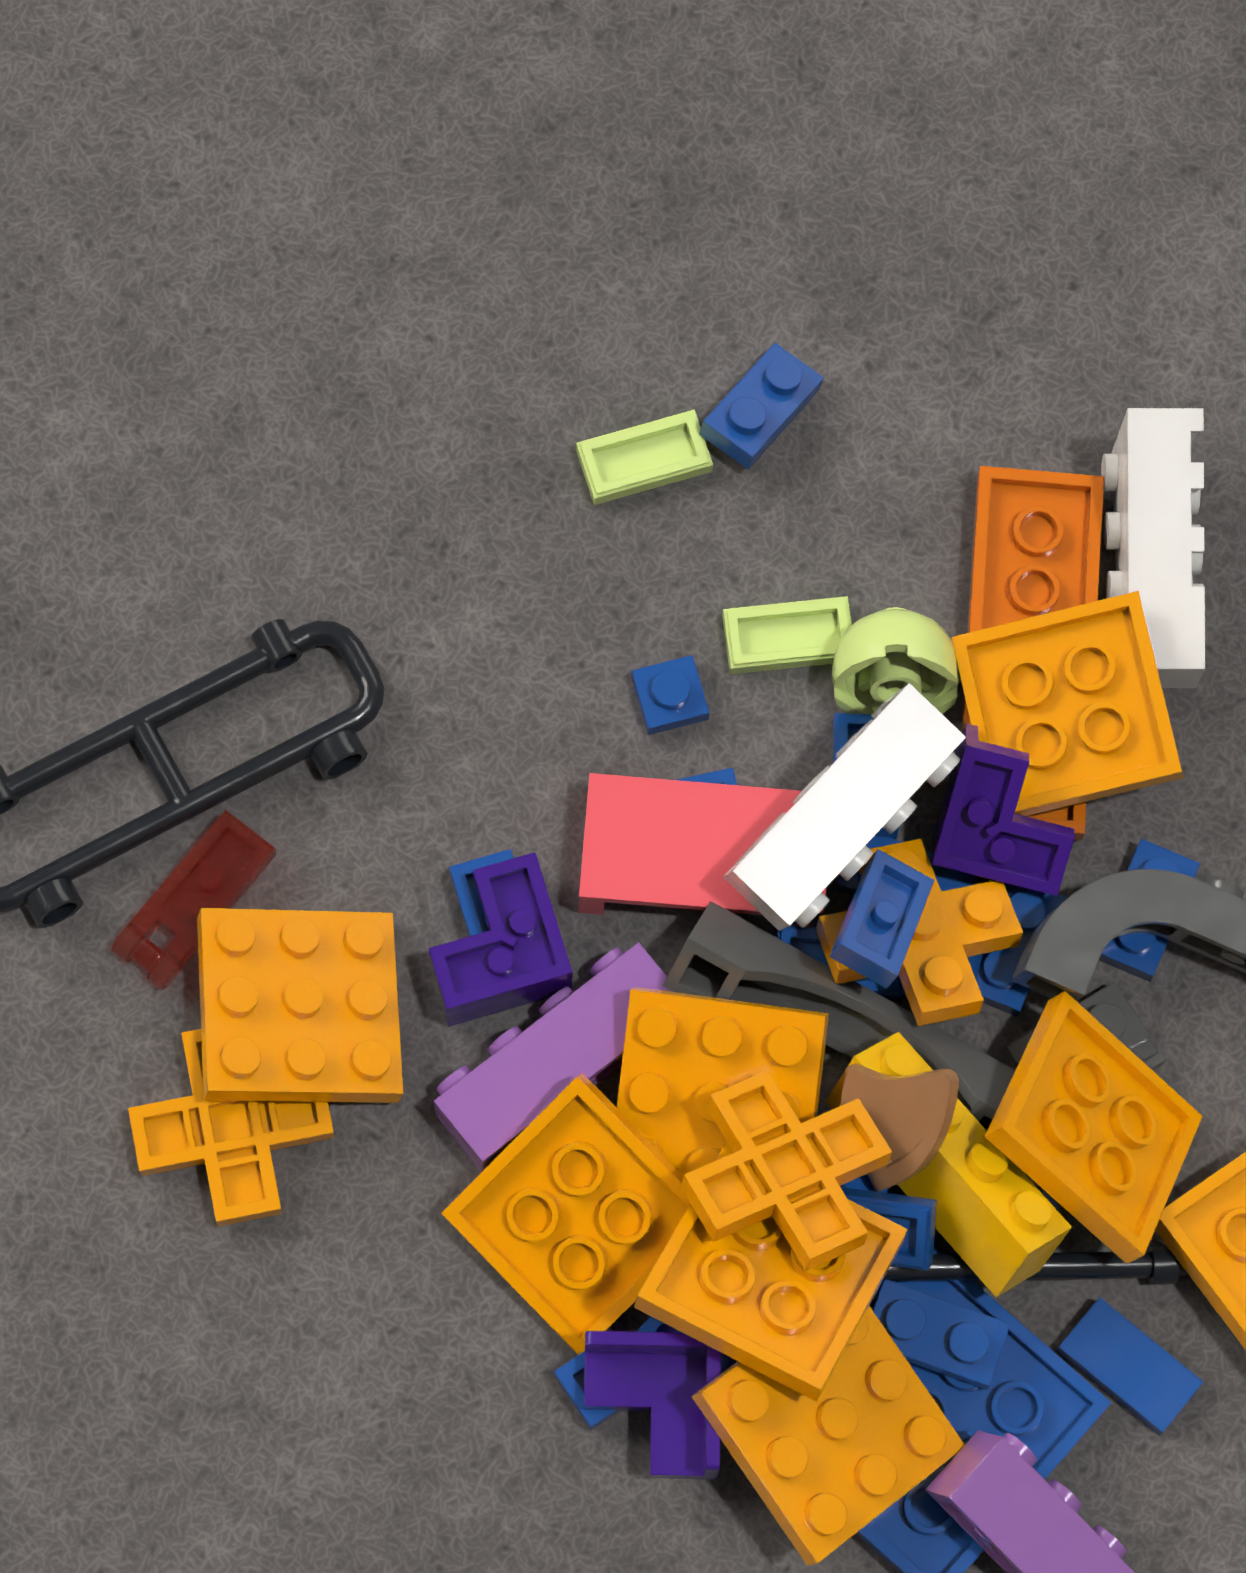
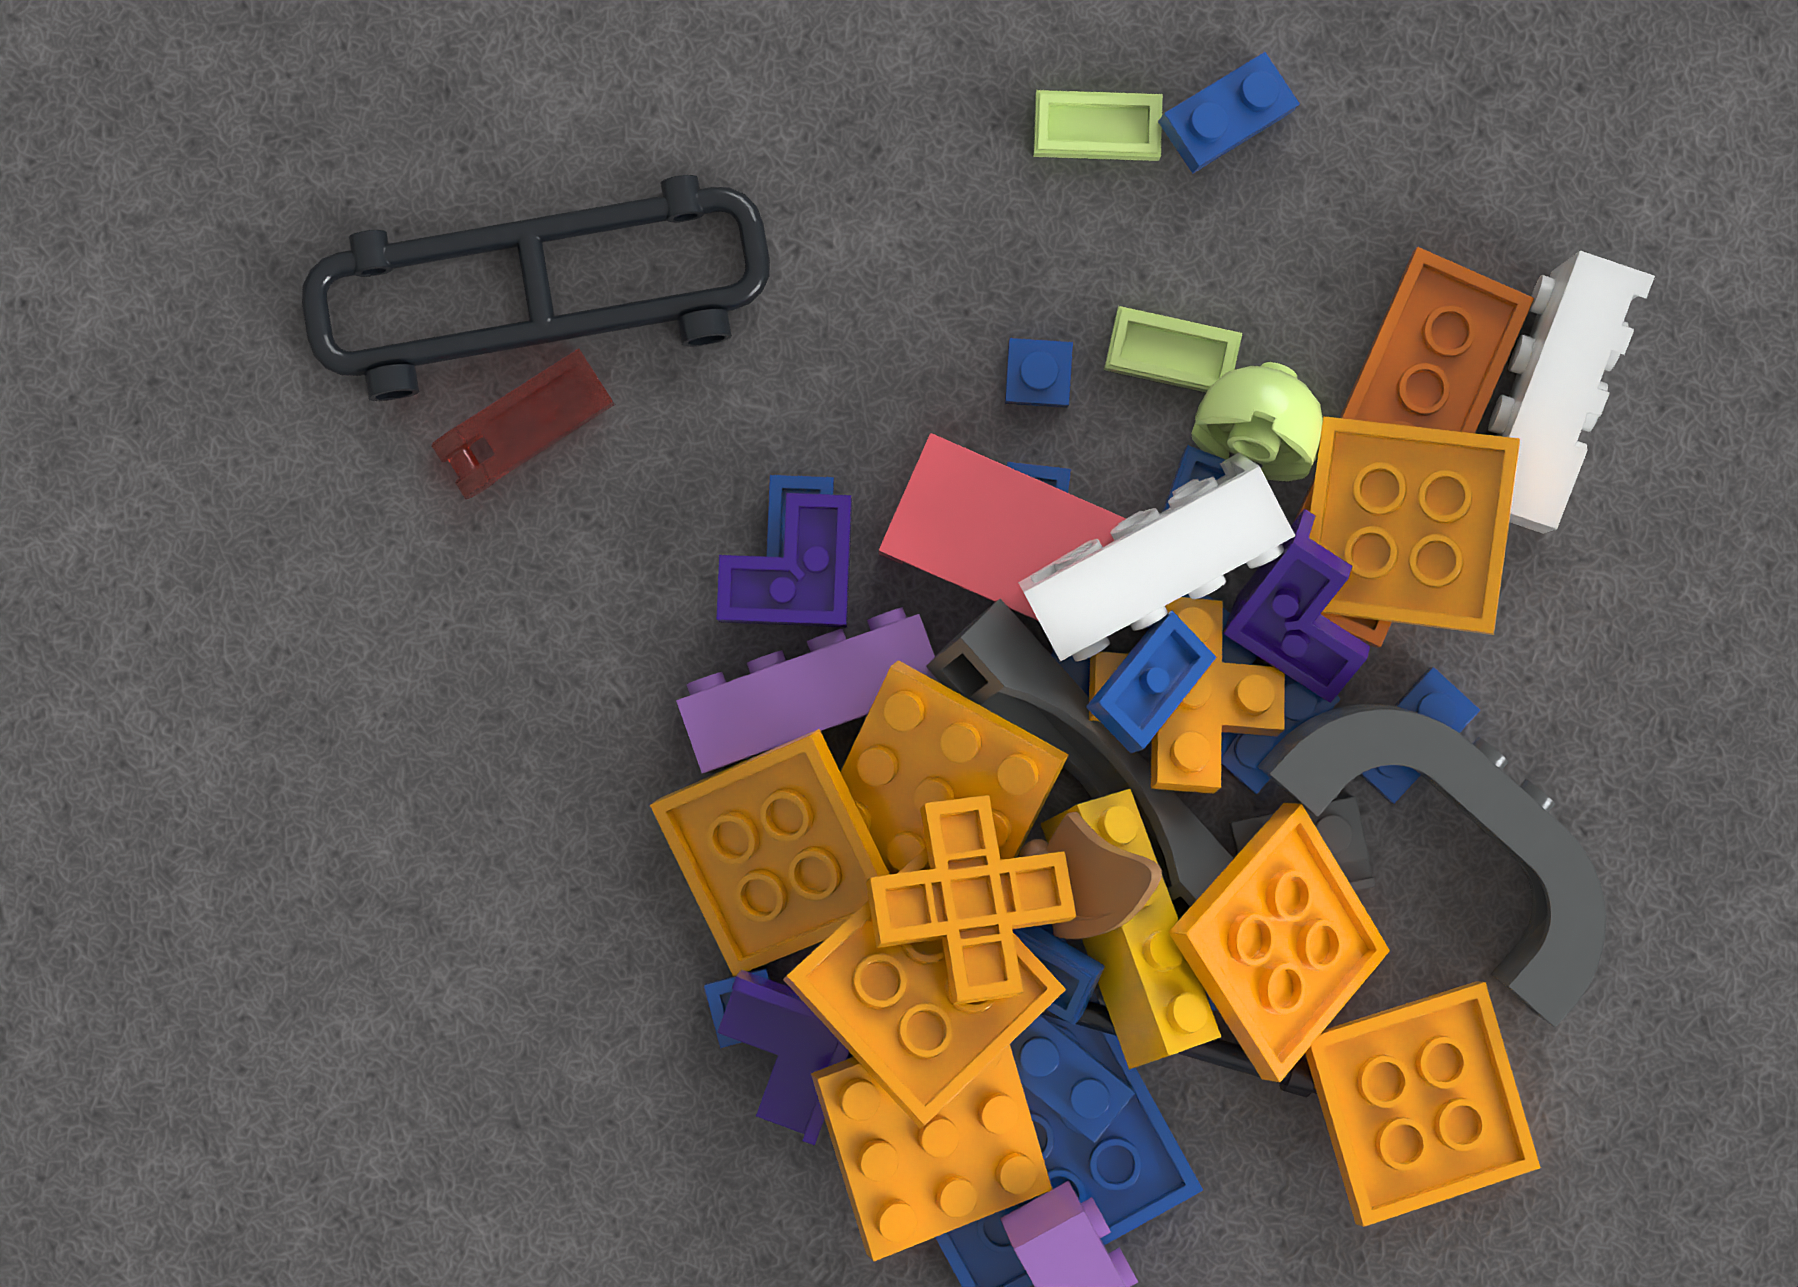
camera: 25 degrees right, 15 degrees up
(228, 1138) = (488, 649): light orange plate -> none
(299, 1006) = (584, 563): light orange plate -> none
(1129, 1366) = (1234, 1157): blue tile -> none

